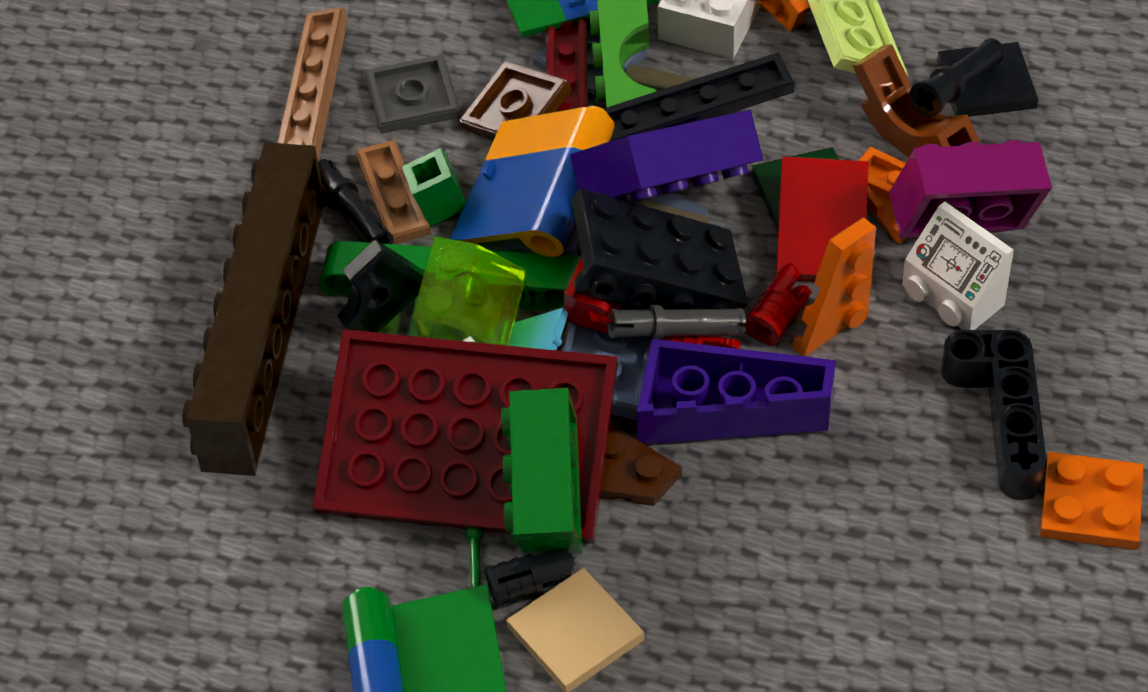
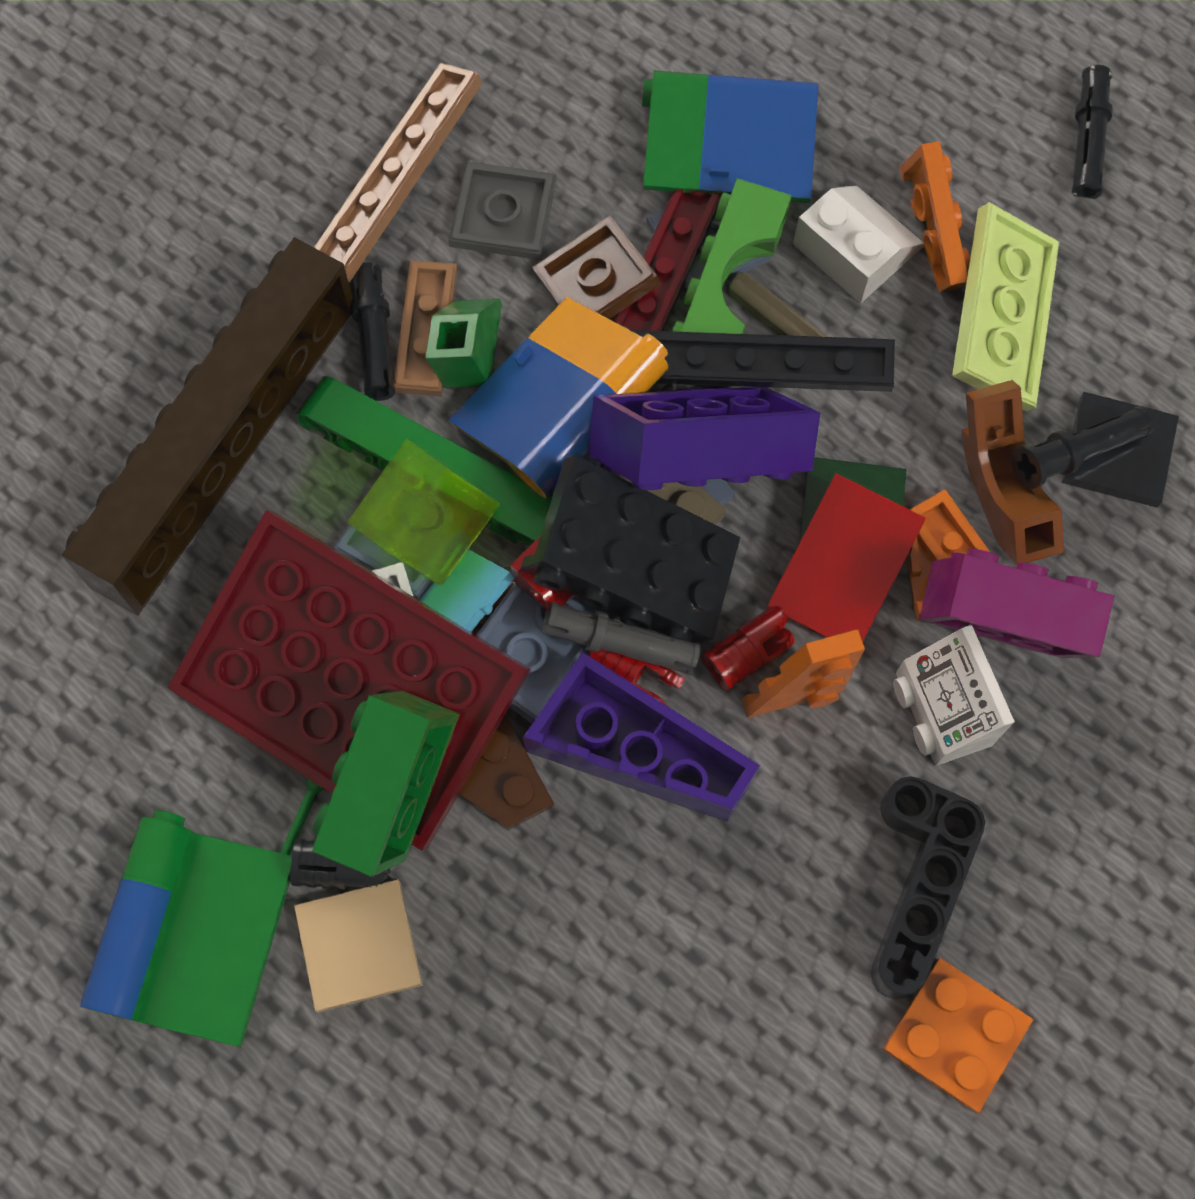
camera: 20 degrees right, 20 degrees up
(380, 288) = (335, 463): black tile -> none

